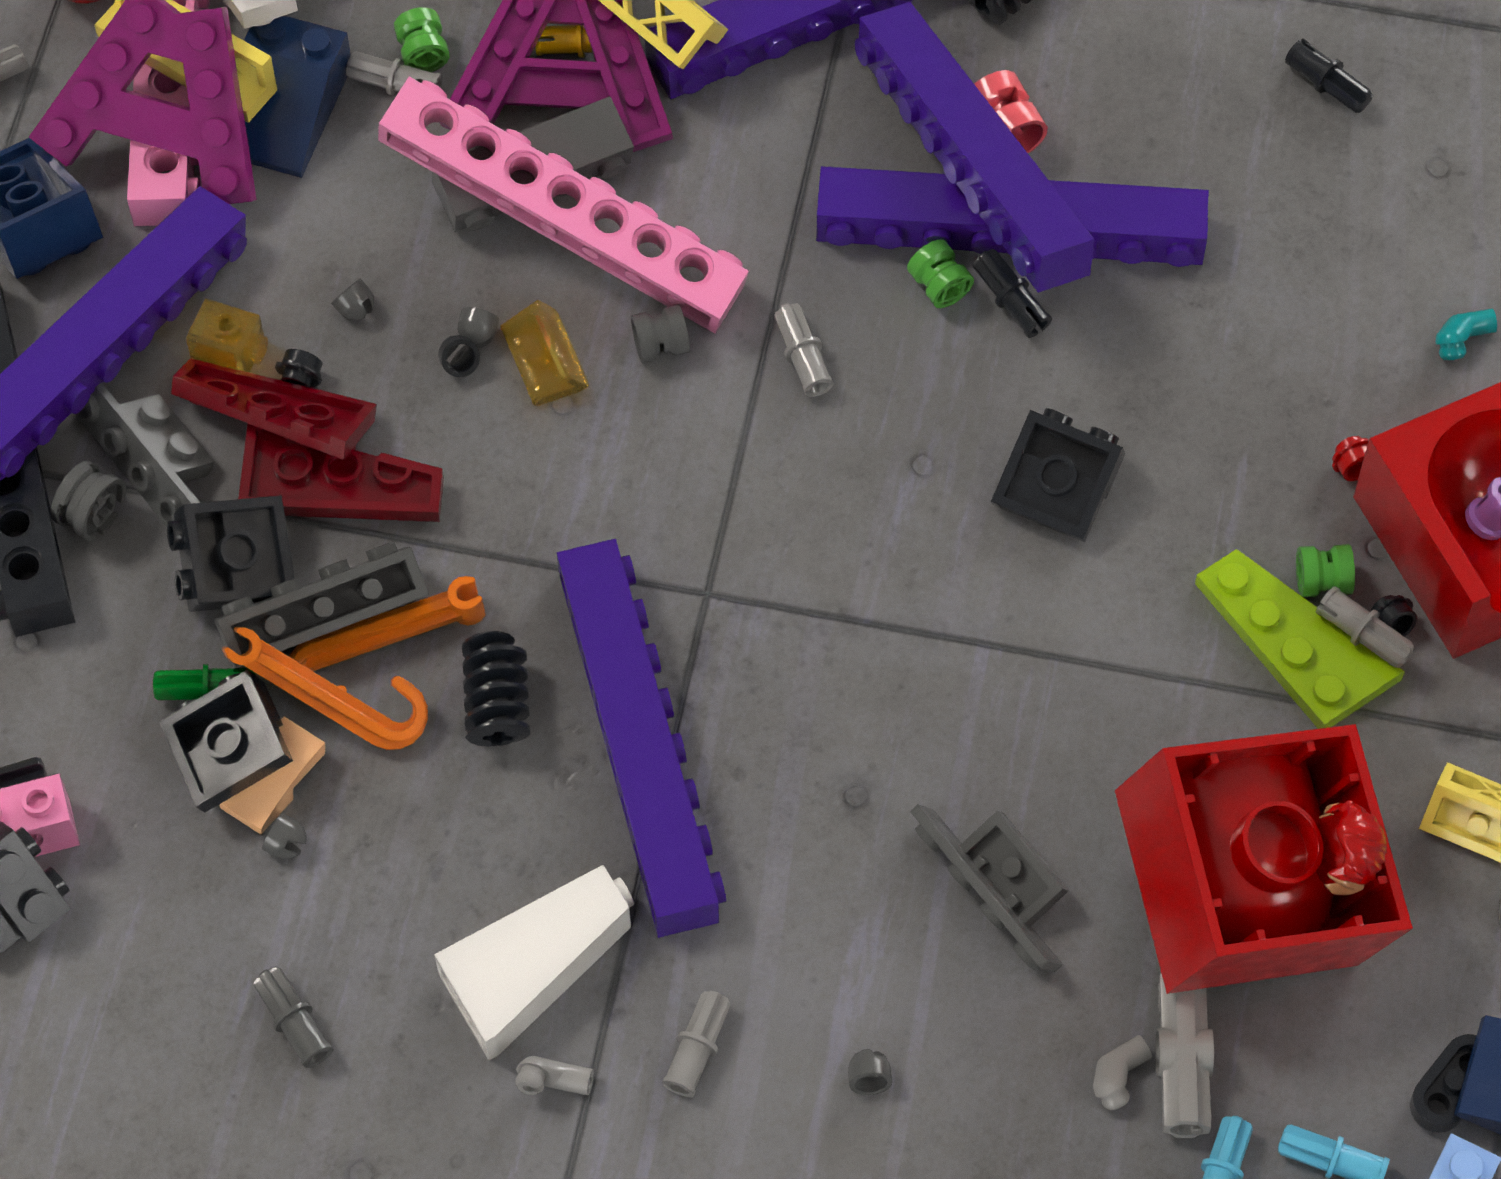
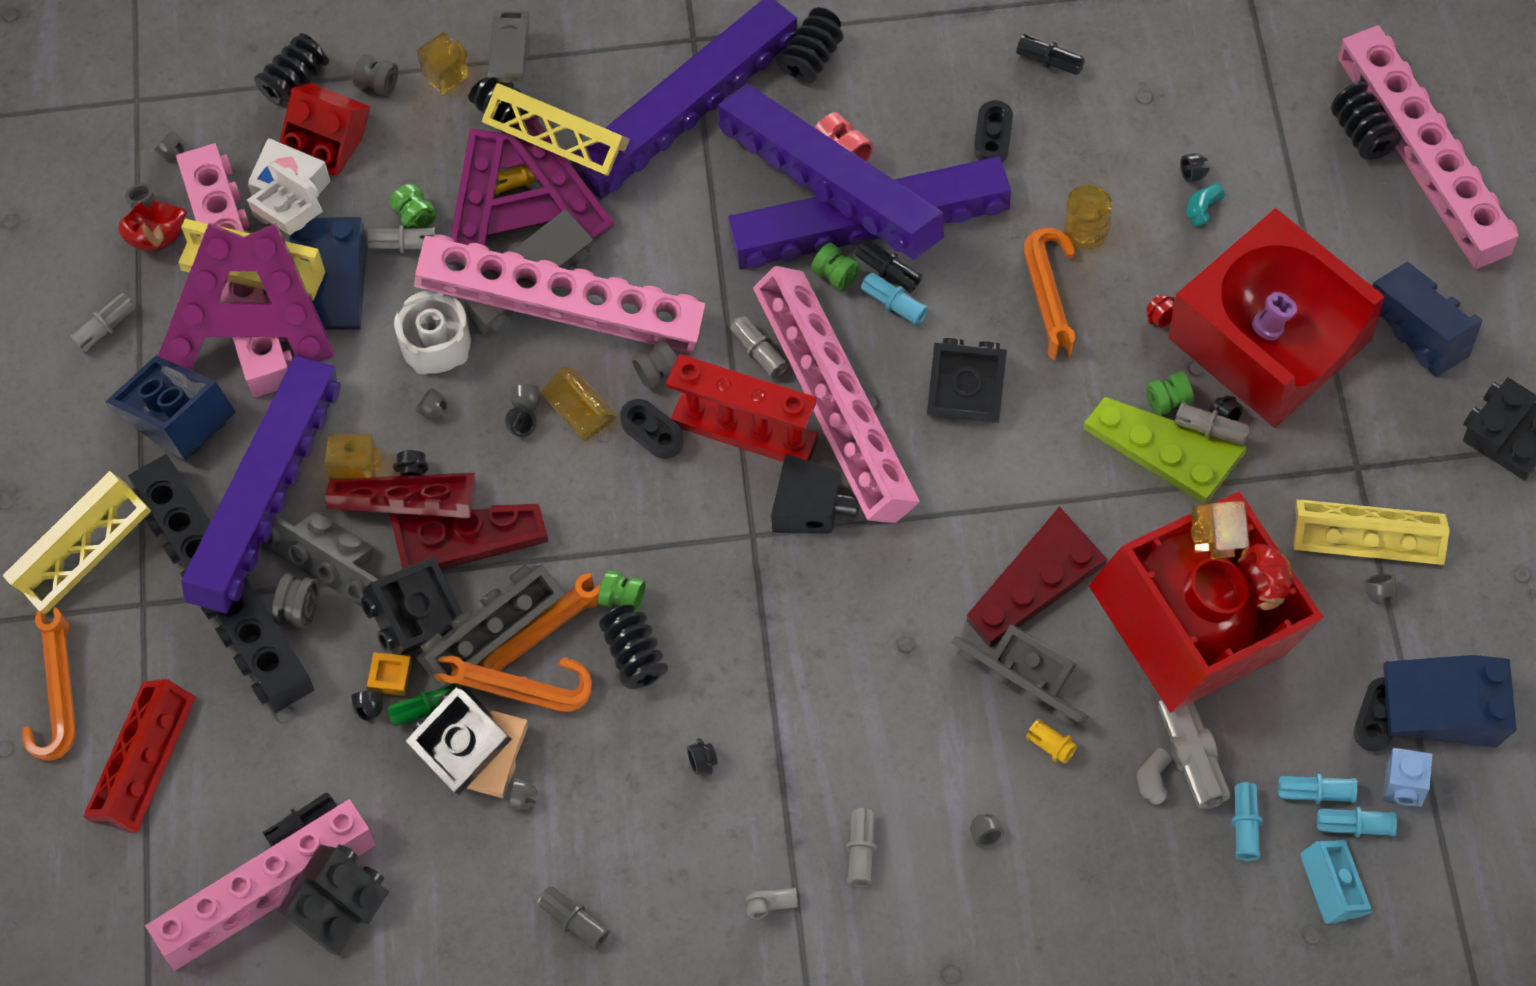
camera: 15 degrees left, 0 degrees up
(132, 660) = (367, 704): none -> black hinge
(174, 630) = (389, 673): none -> light orange plate
(387, 208) = (433, 332): none -> white brick
(504, 612) = (621, 591): none -> bright green wheel
(532, 956) = (724, 825): white slope -> none
(533, 861) = (702, 757): none -> black plate
(626, 418) = (653, 430): none -> black plate
(638, 738) = (744, 649): dark purple brick -> none
(745, 426) = (742, 410): none -> red fence
(795, 566) = (809, 498): none -> black torso
(877, 442) = (841, 401): none -> bright pink brick
(1000, 984) = (1051, 741): none -> yellow pin
(1004, 339) = (894, 299): none -> medium azure axle
(1062, 760) = (1040, 574): none -> dark red wing
(1209, 382) = (1045, 288): none -> orange piece
(1213, 161) = (991, 134): none -> black plate
(1299, 303) = (1088, 216): none -> clear yellow wheel
(1306, 765) = (1219, 528): none -> clear yellow brick
(1468, 279) = (1193, 167): none -> black hinge

